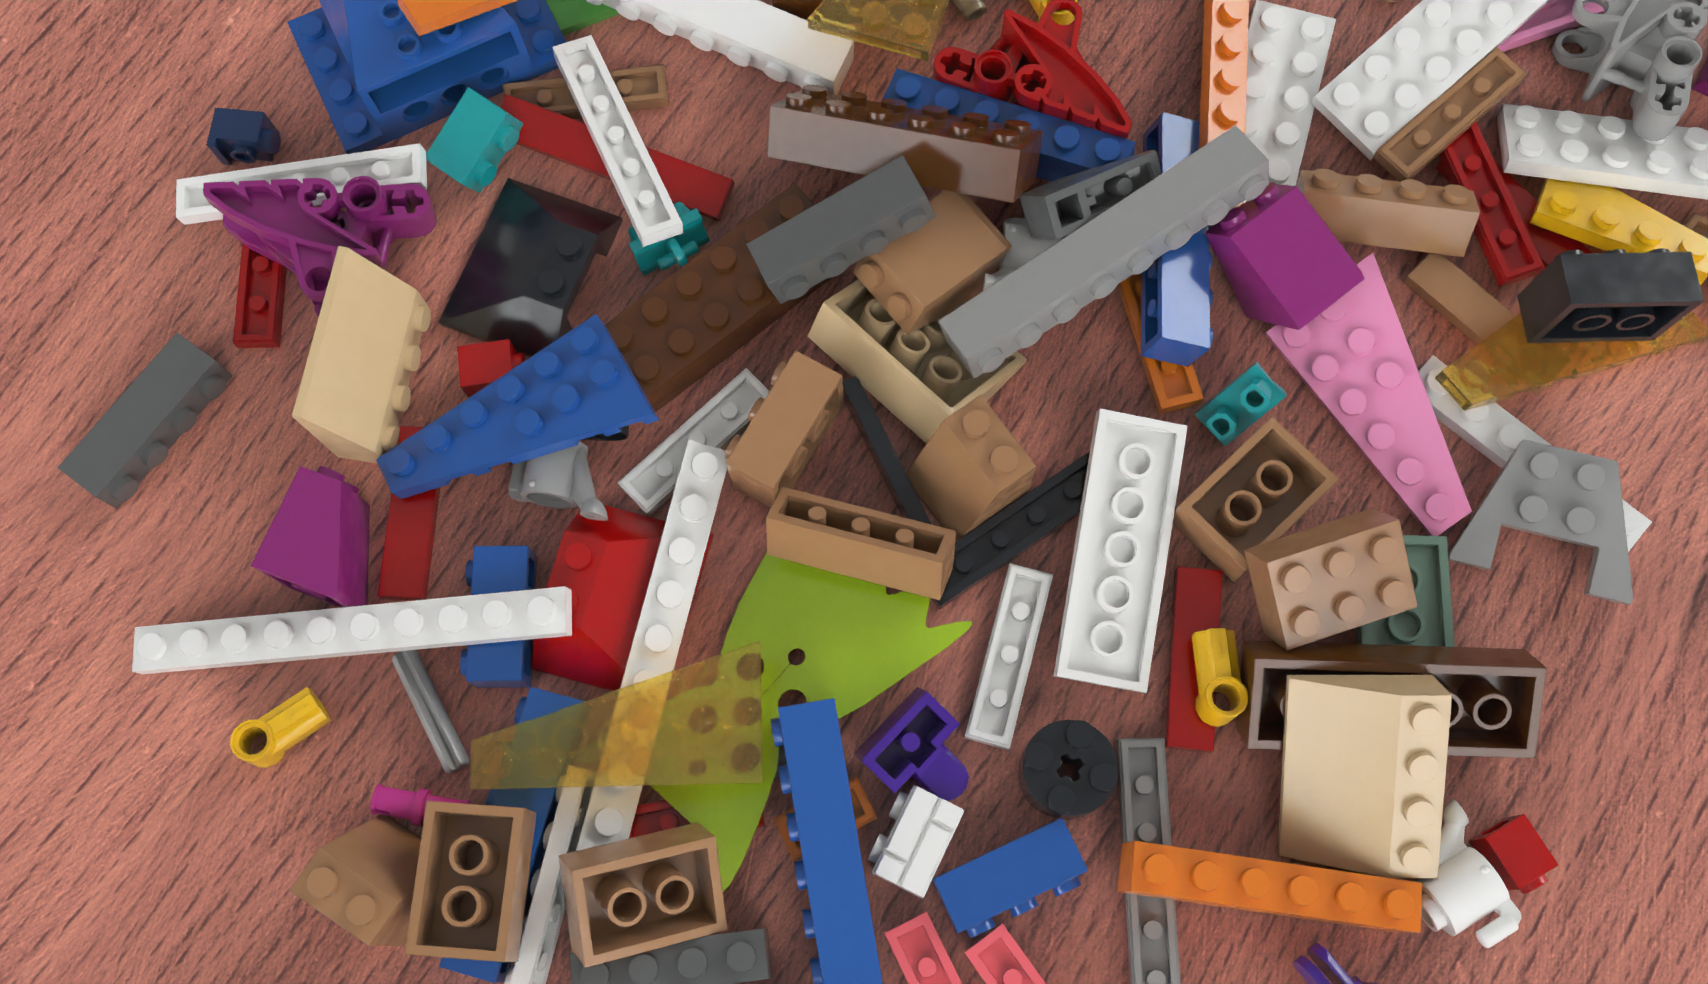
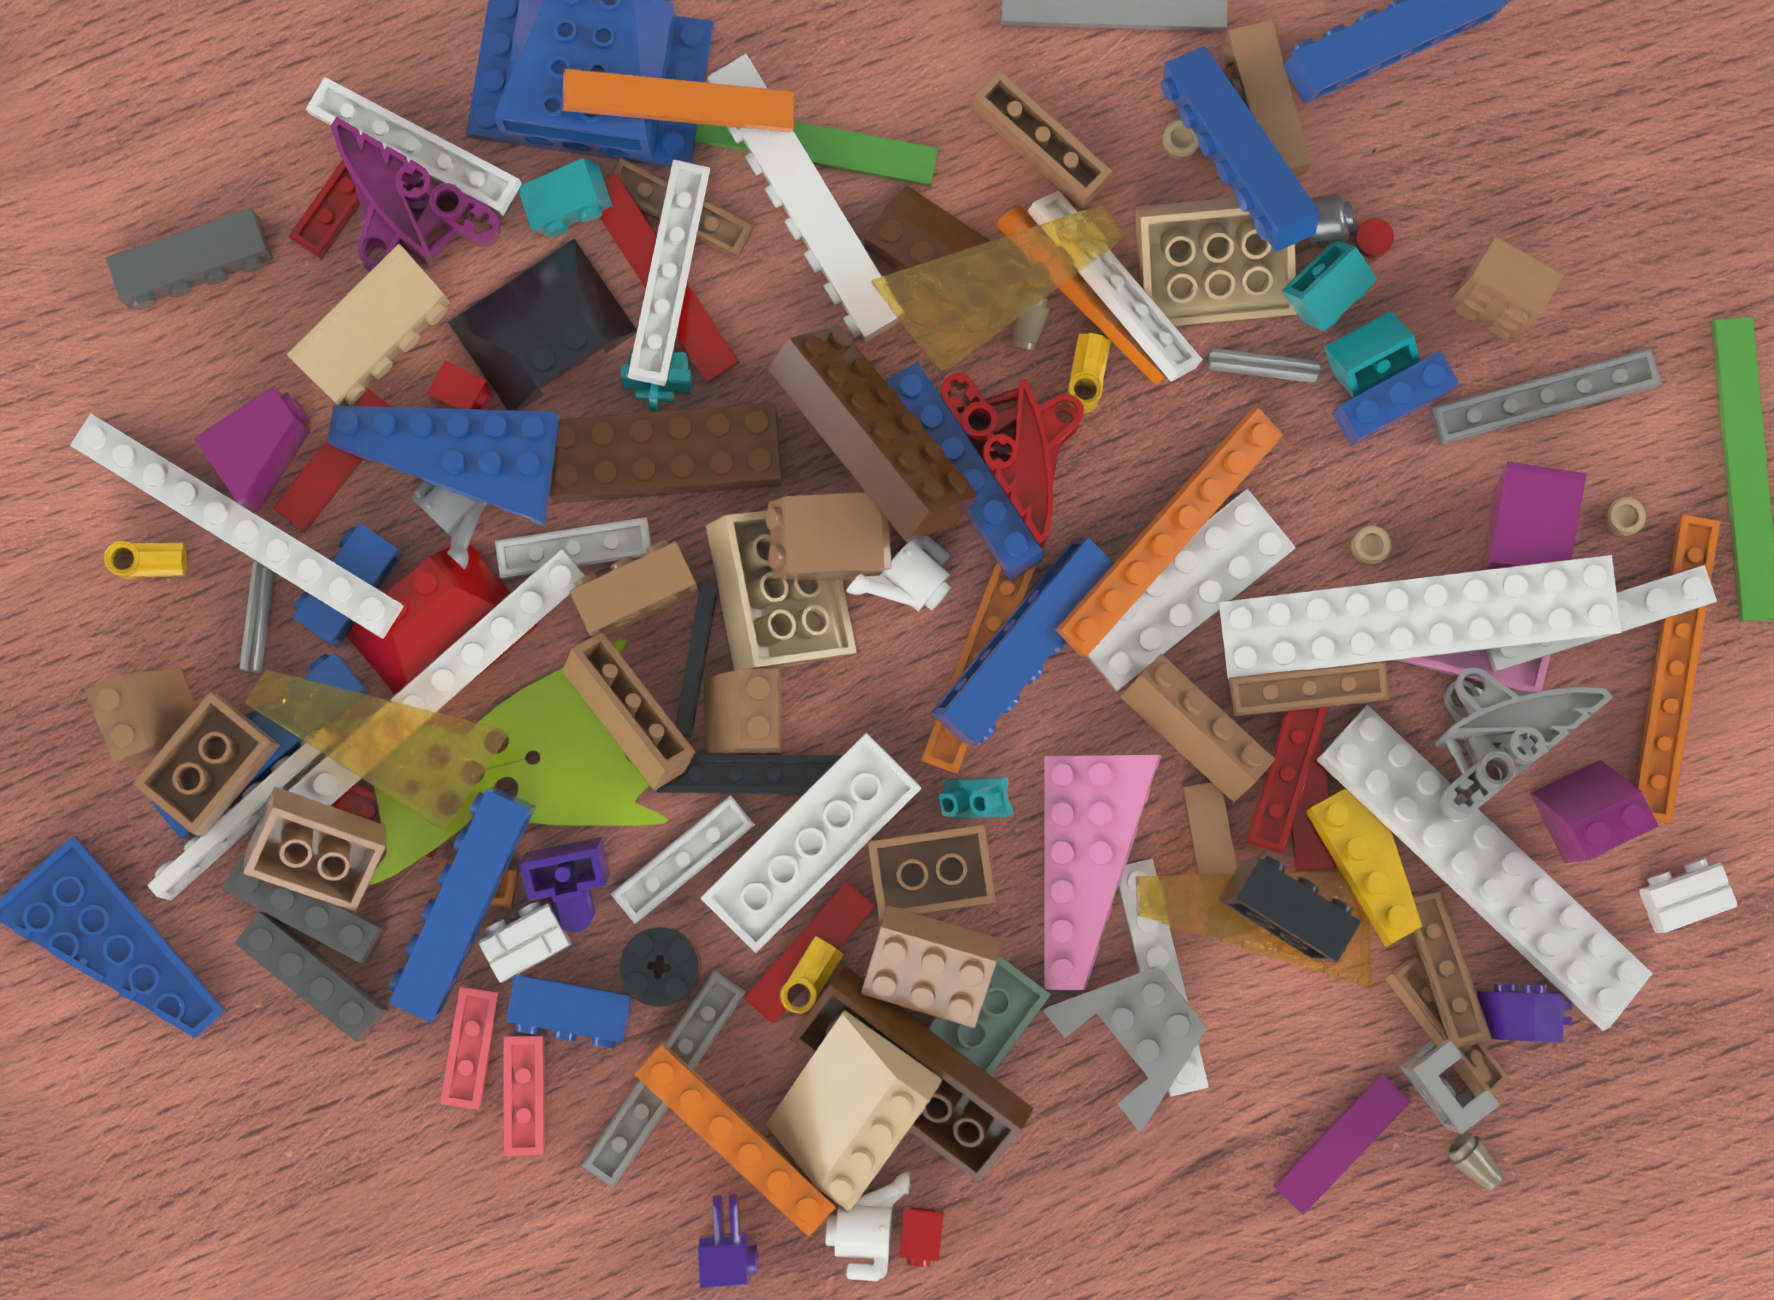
camera: 30 degrees right, 10 degrees up
(242, 136) = (397, 69): dark blue brick -> none
(405, 803) = (203, 677): dark pink pin -> none
(841, 230) = (768, 476): dark grey brick -> none
(1080, 197) = (975, 572): dark grey slope -> none
(1106, 251) = (951, 623): light grey brick -> none
(1282, 258) = (1086, 713): magenta slope -> none

